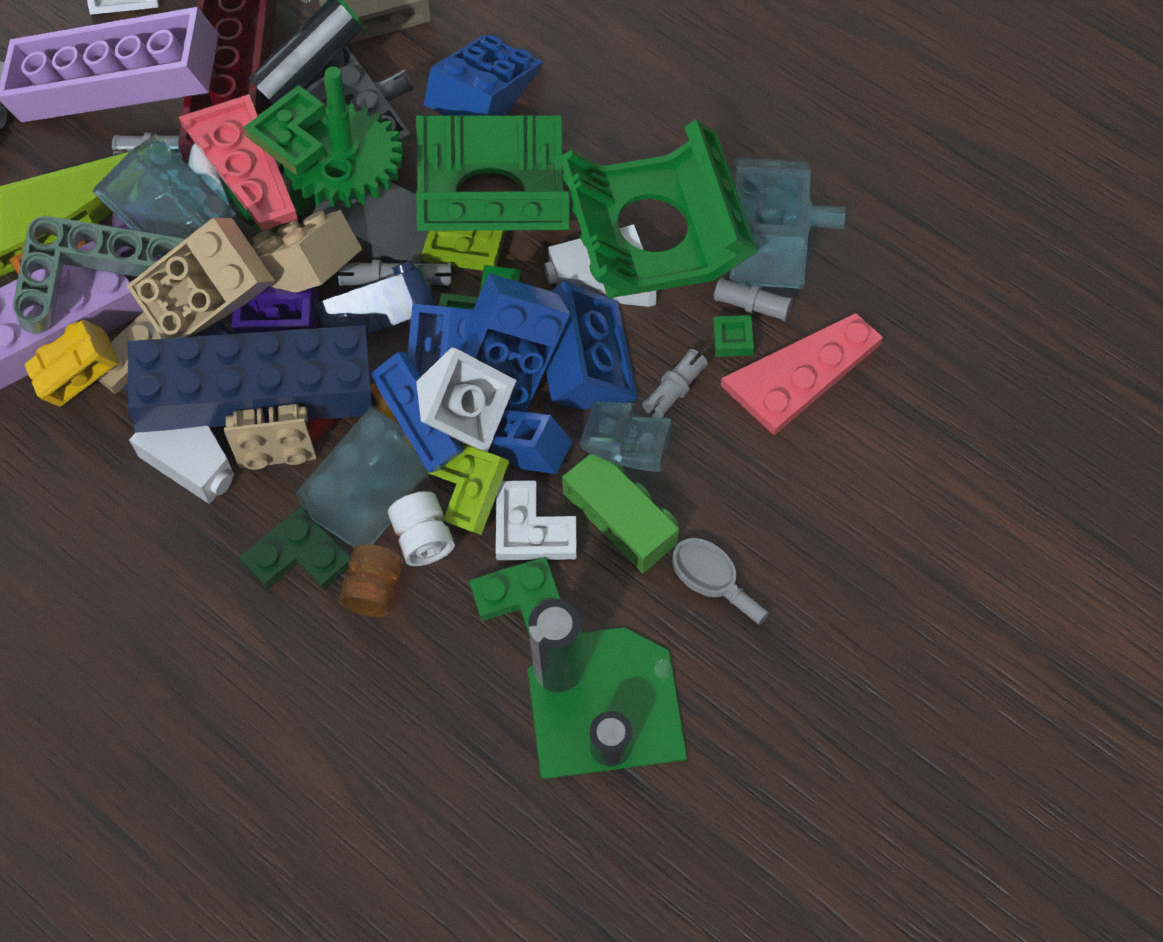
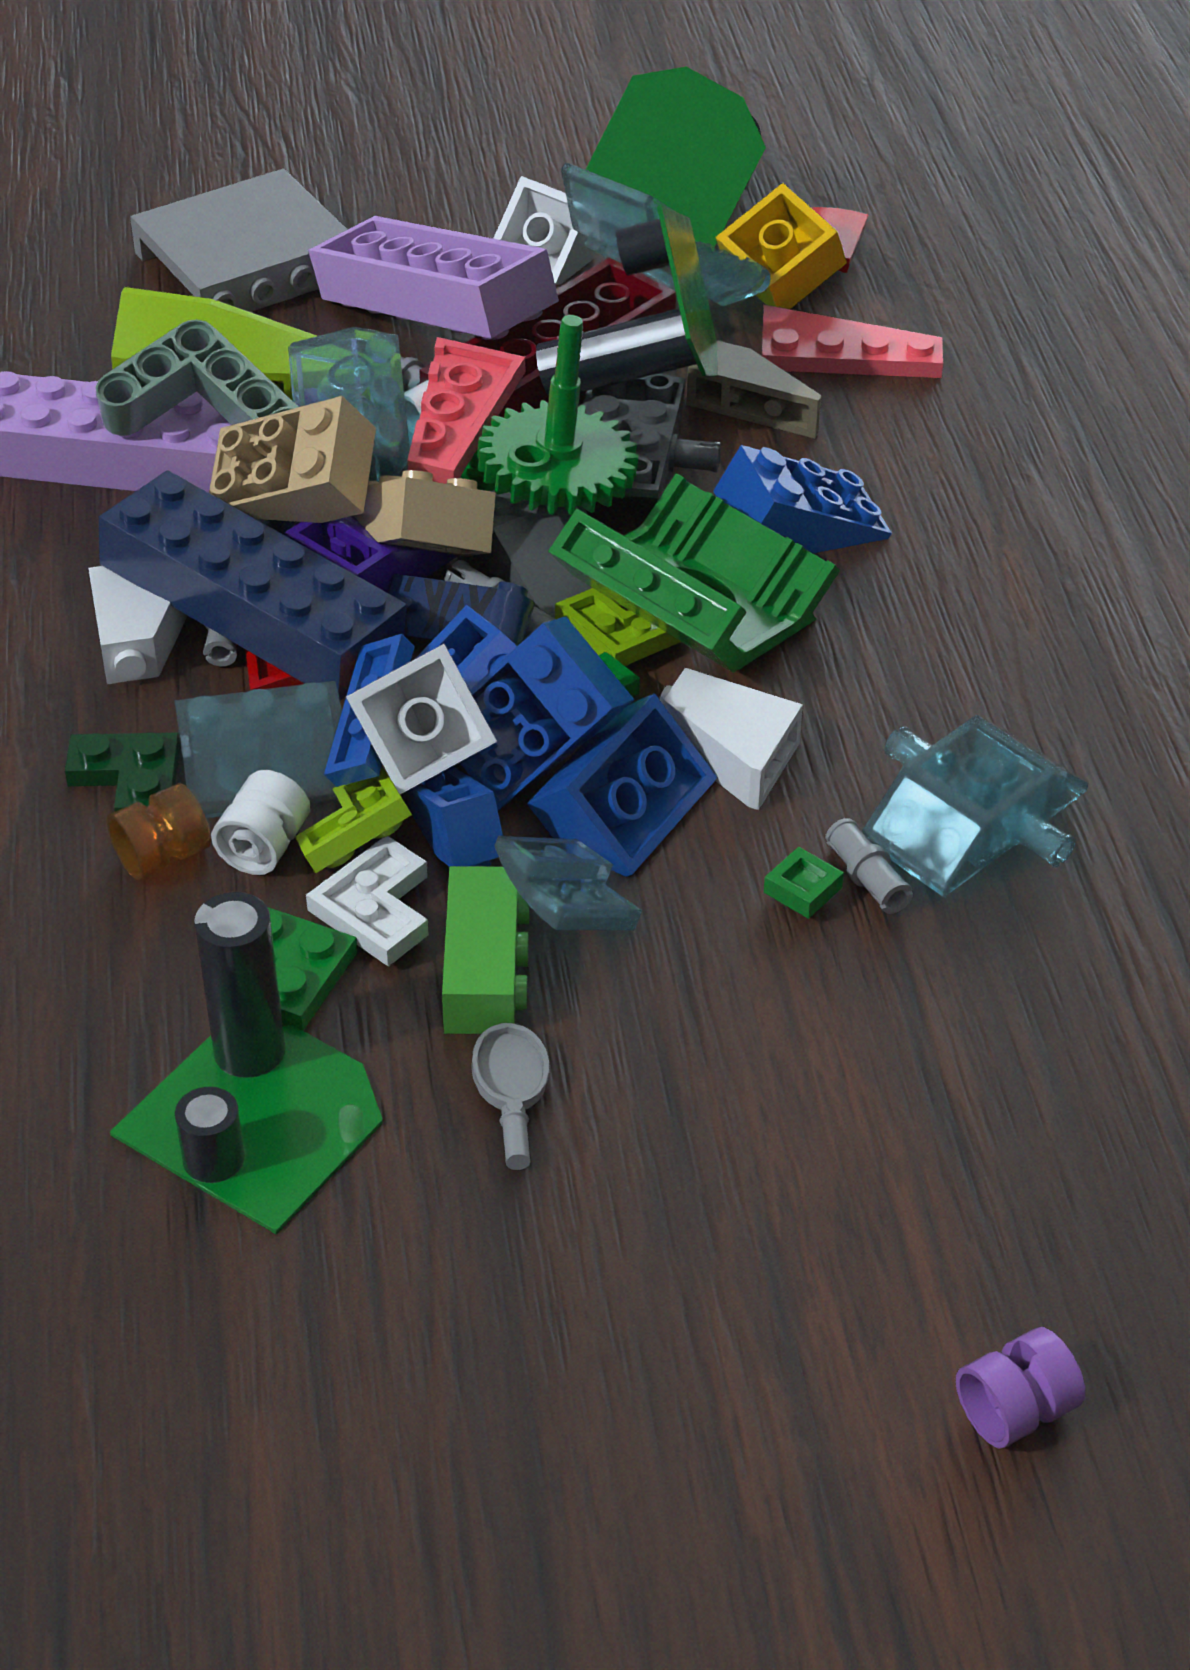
camera: 40 degrees right, 20 degrees down
(71, 362) = (110, 477): yellow brick -> none
(270, 442) = (209, 643): tan hinge -> none
(282, 130) = (508, 394): green plate -> none
(675, 384) = (686, 884): light grey pin -> none
(690, 179) = (784, 648): green panel -> none
(797, 375) = (841, 970): coral wing -> none
(1109, 545) = (1016, 1389): none -> medium lavender wheel

